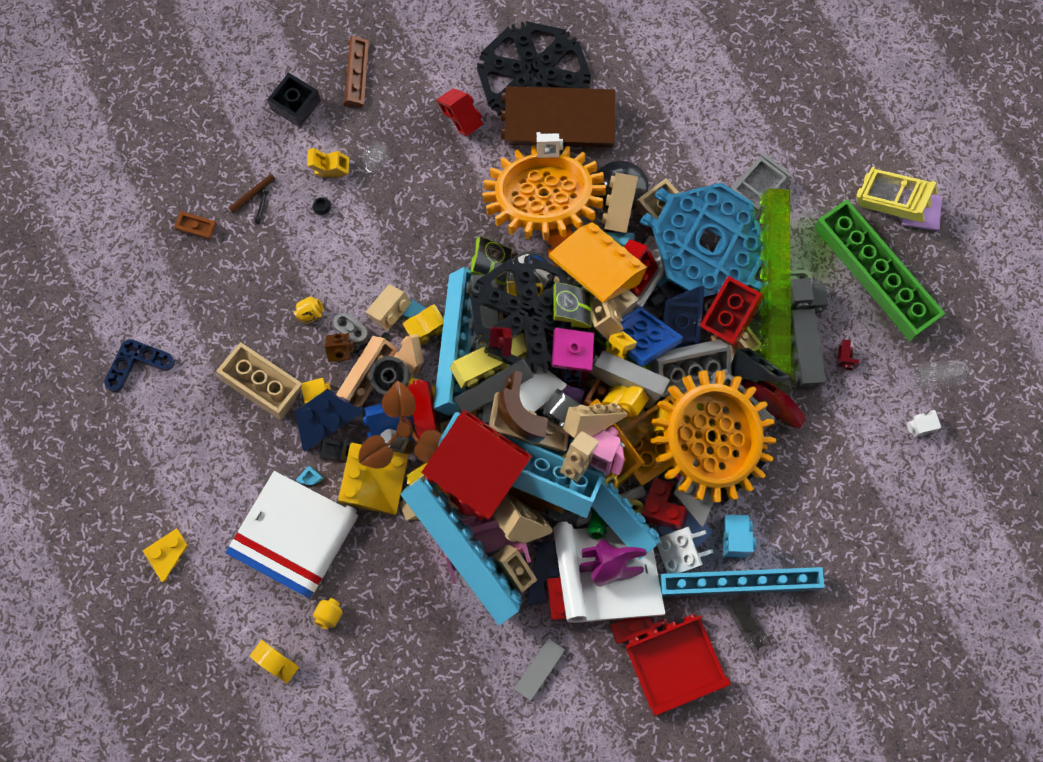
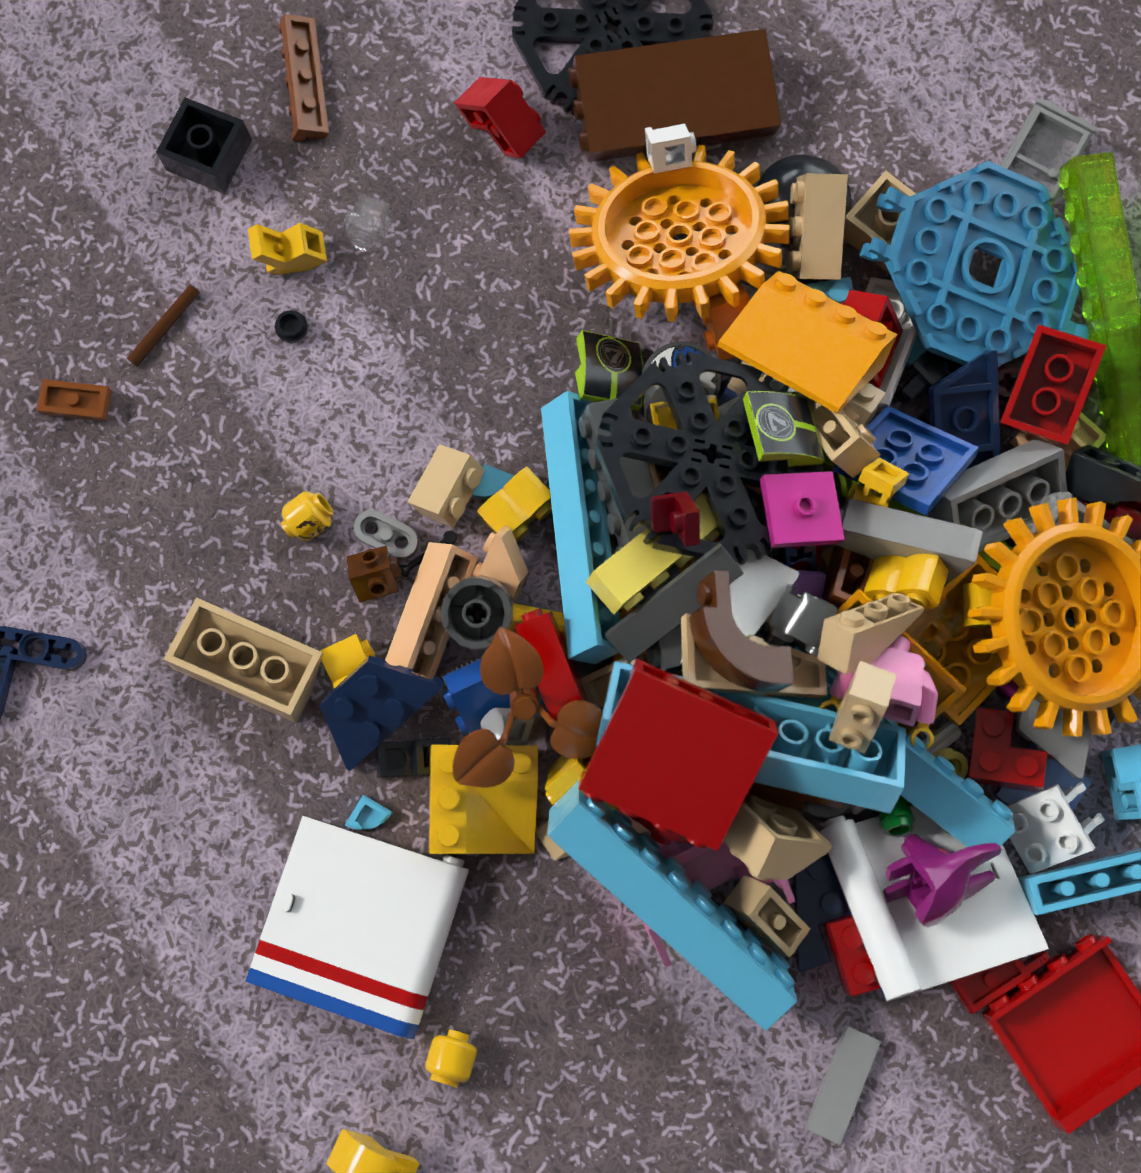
camera: 10 degrees left, 5 degrees up
(166, 553) = (140, 1002): yellow wing -> none
(265, 192) = (185, 318): black hinge -> none

